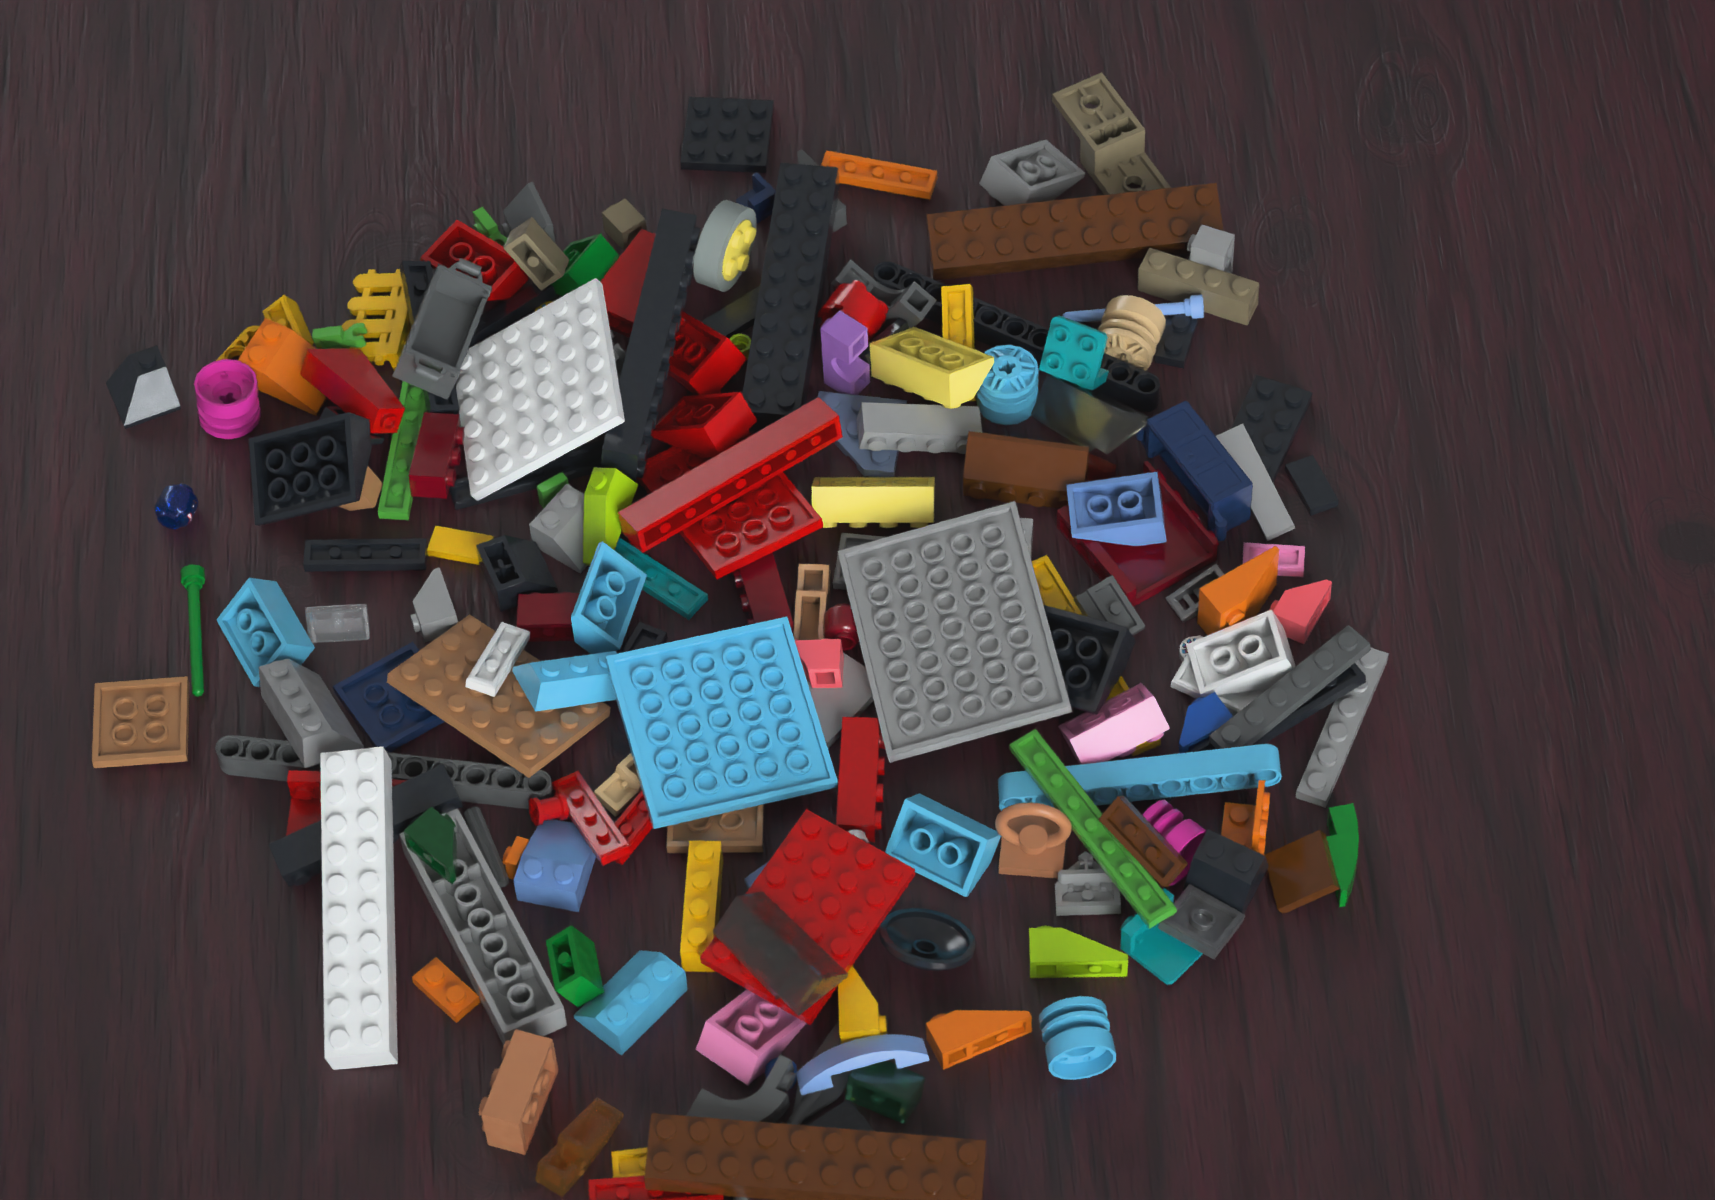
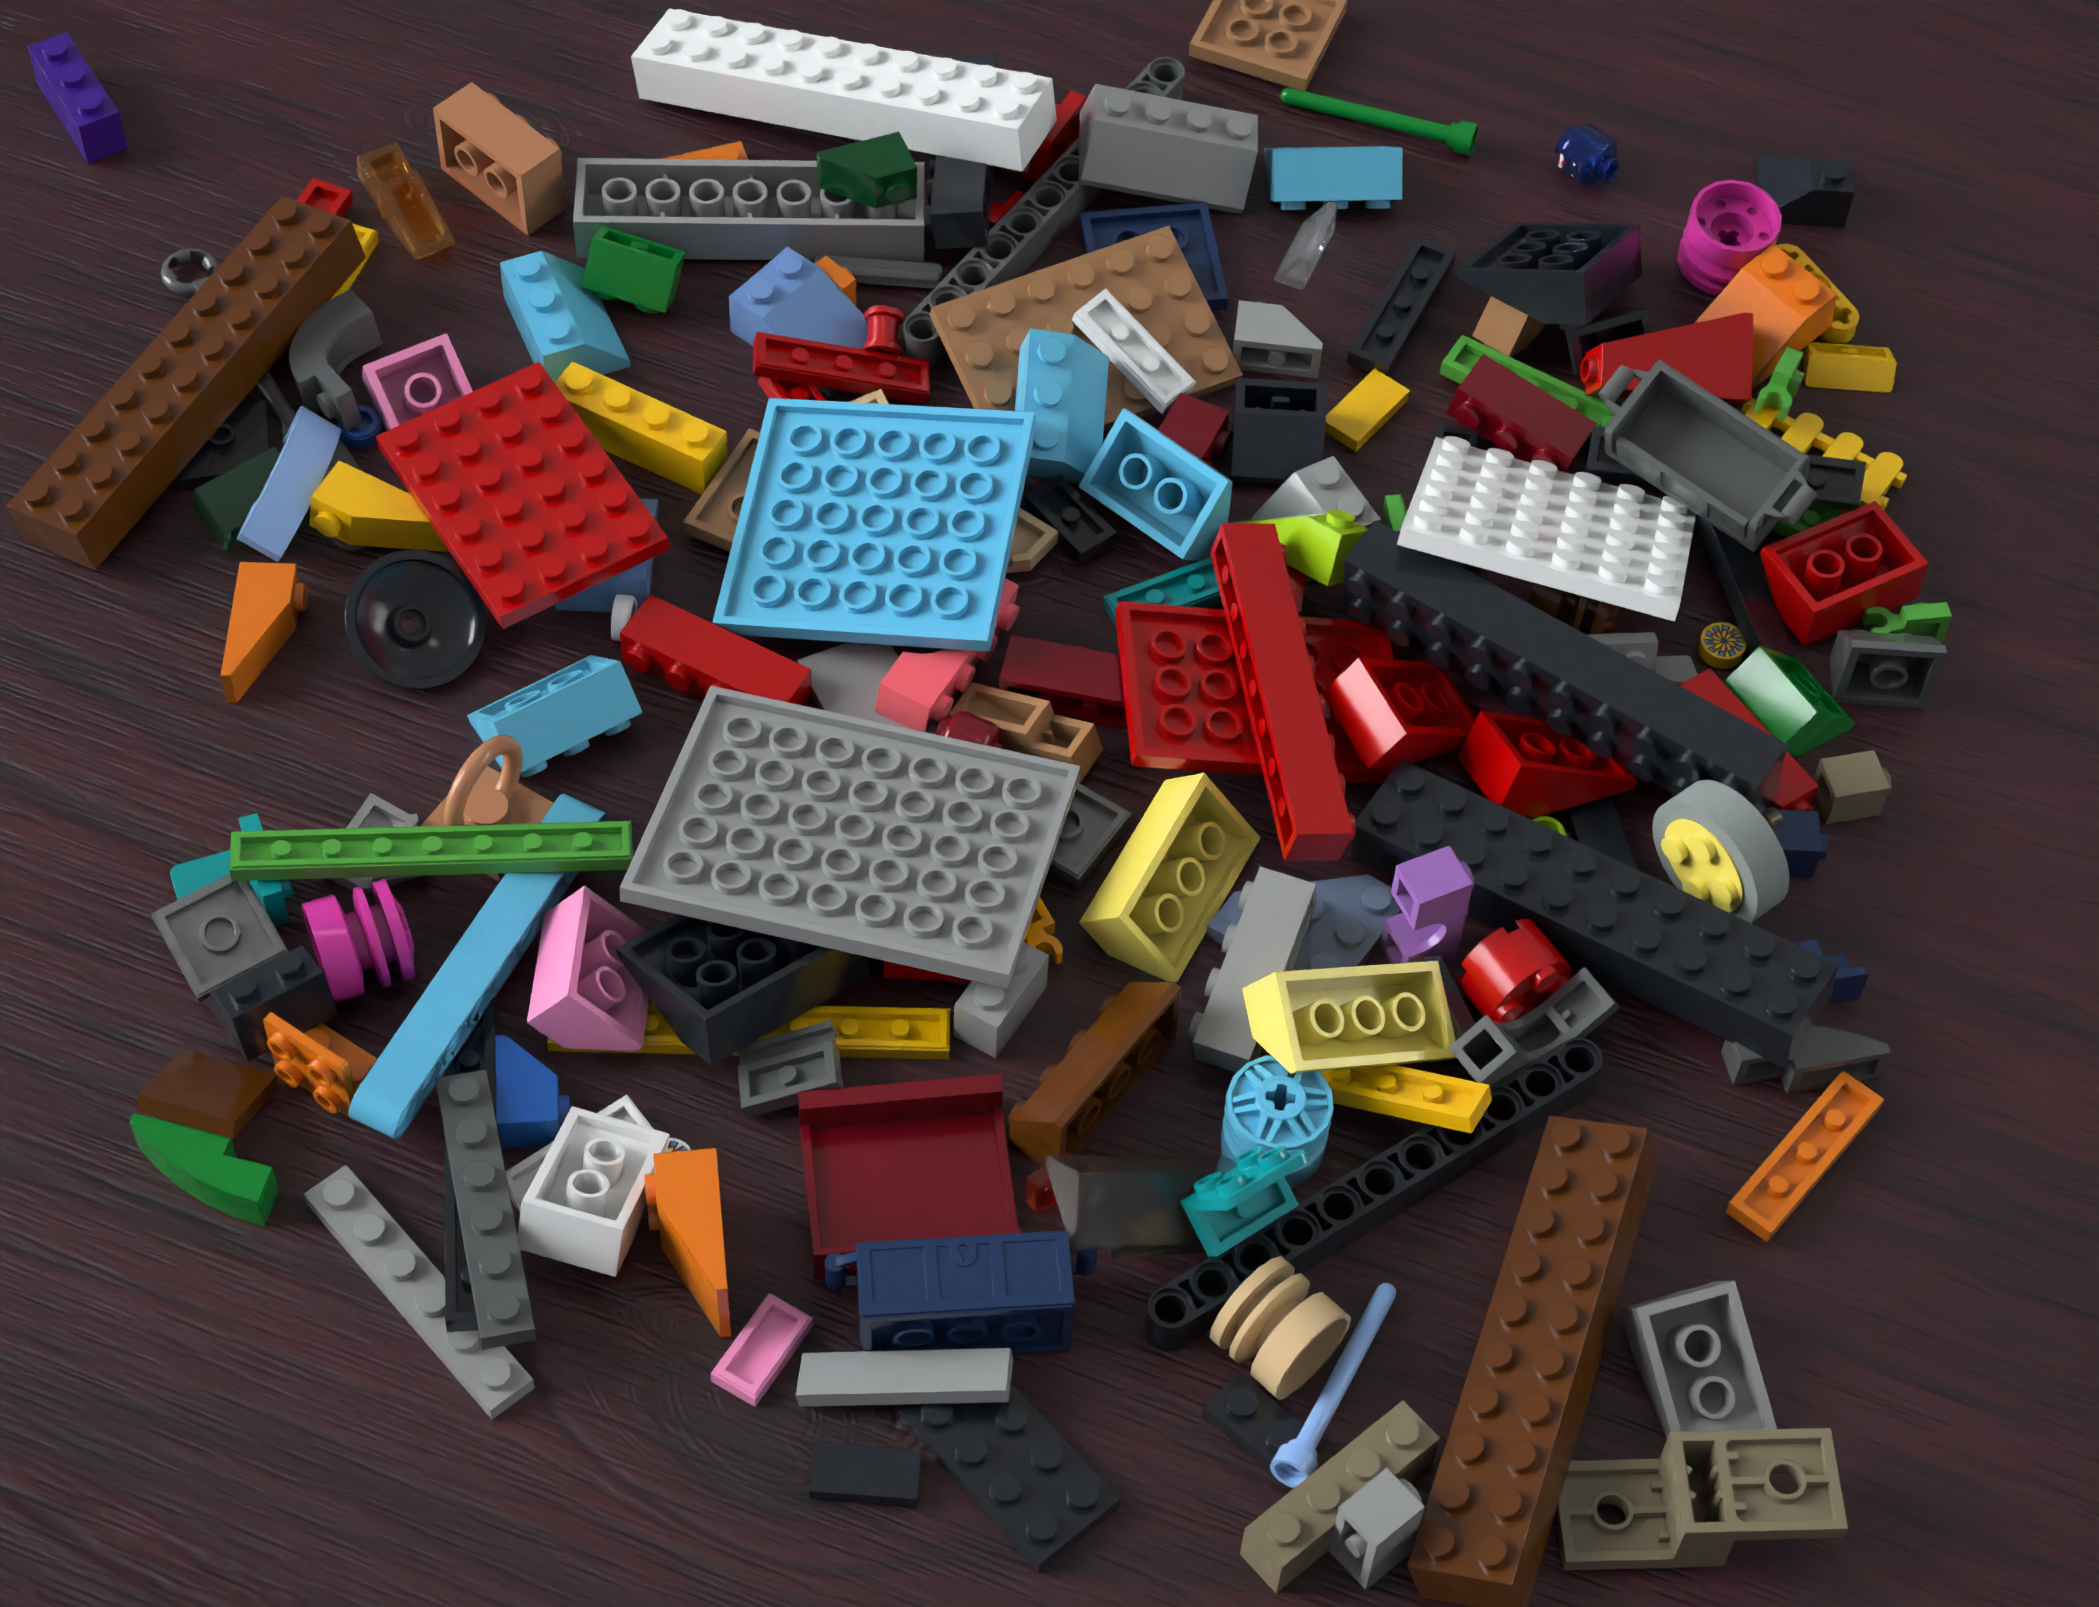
camera: 110 degrees right, 0 degrees up
(536, 253) = (1810, 619): dark tan brick -> none
(727, 134) = (1988, 998): black plate -> none
(778, 951) = (472, 422): clear smoke slope -> none
(1068, 954) = (291, 772): lime slope -> none
(1077, 1038) = (151, 707): medium azure wheel -> none
(1118, 510) = (943, 1144): medium blue slope -> none
(1143, 841) = (348, 874): reddish brown plate -> none
(1192, 587) = (758, 1249): flat silver slope -> none
(1302, 608) = (638, 1323): coral slope -> none

